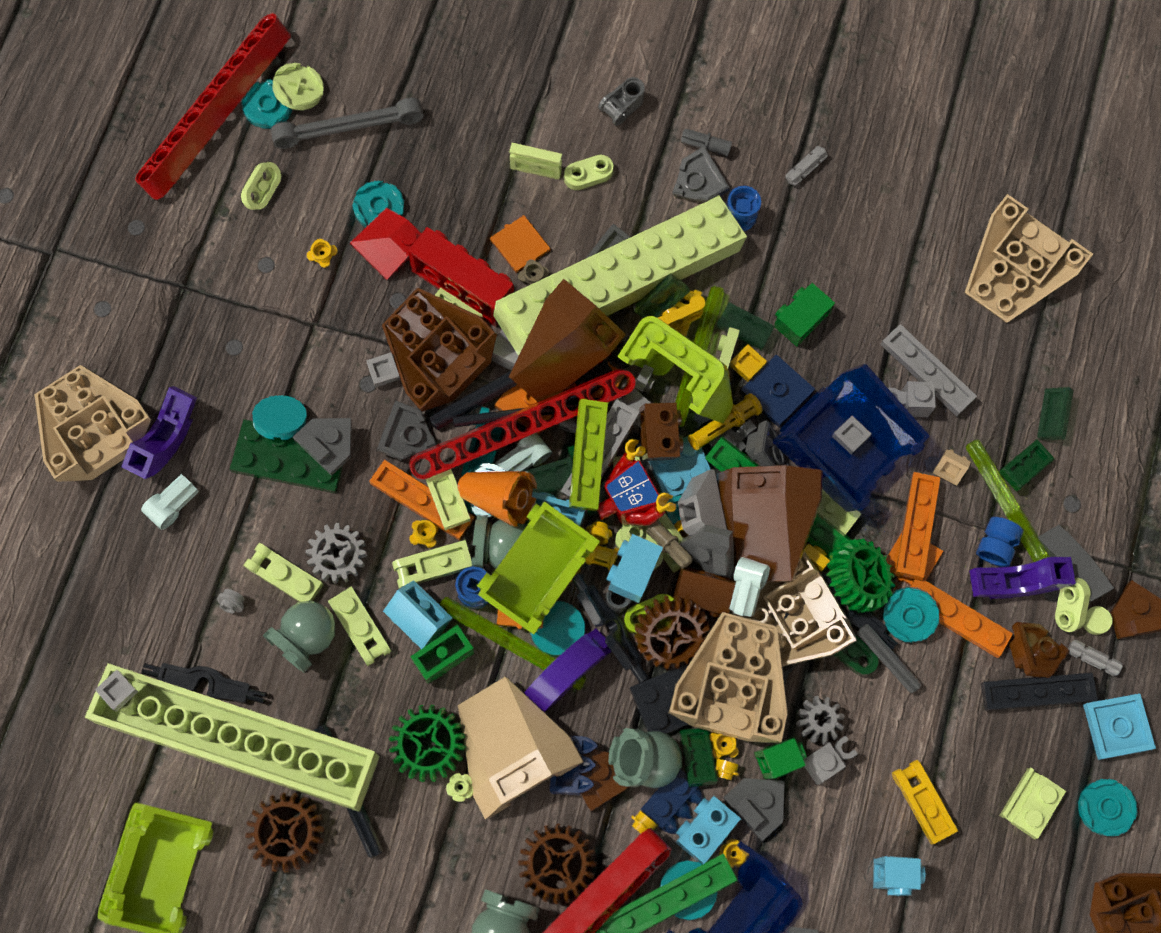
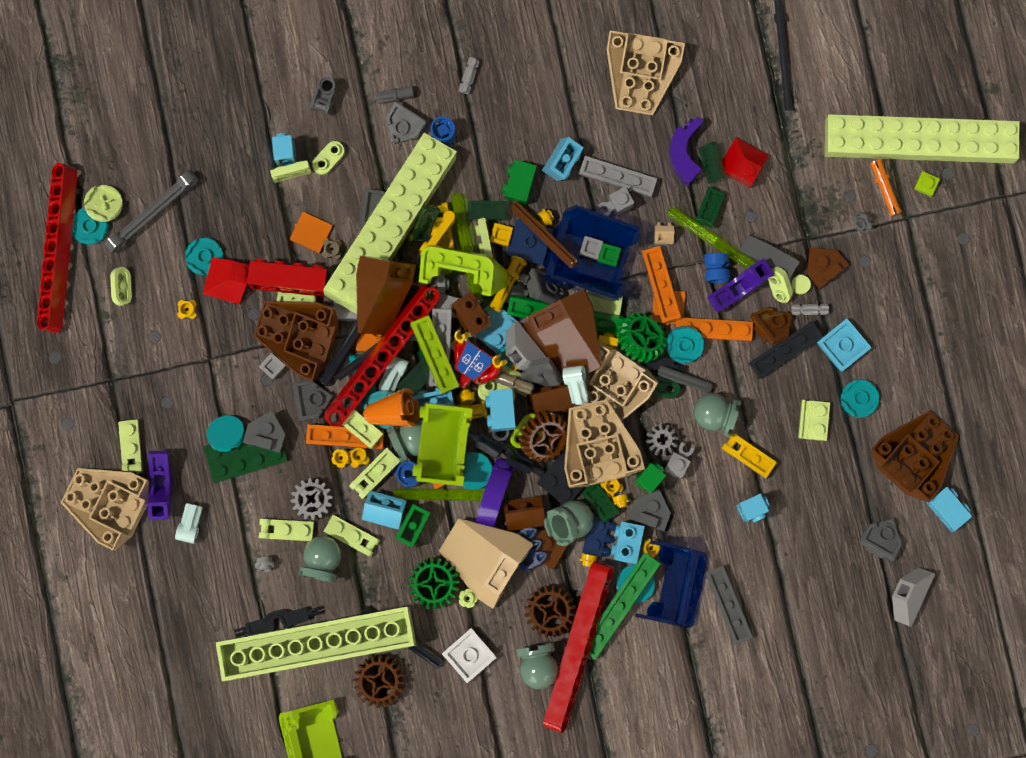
camera: 20 degrees left, 10 degrees up
(116, 690) = (232, 655): light grey plate -> none
(158, 373) = (130, 446): none -> yellowish green plate
(396, 518) = (340, 463): none -> yellow plate
(420, 864) = (469, 655): none -> white plate
(542, 128) = (284, 149): none -> medium azure brick
(592, 716) = (524, 513): none -> reddish brown brick
(802, 388) = (565, 255): none -> reddish brown axle
(813, 371) = (545, 217): none -> yellow plate
(870, 455) = (609, 255): none -> green plate
(871, 312) = (562, 159): none -> medium azure brick
(909, 721) = (716, 413): none -> sand green tile
(1016, 392) = (680, 162): none -> dark purple arch
(1094, 435) = (743, 162): none -> red slope

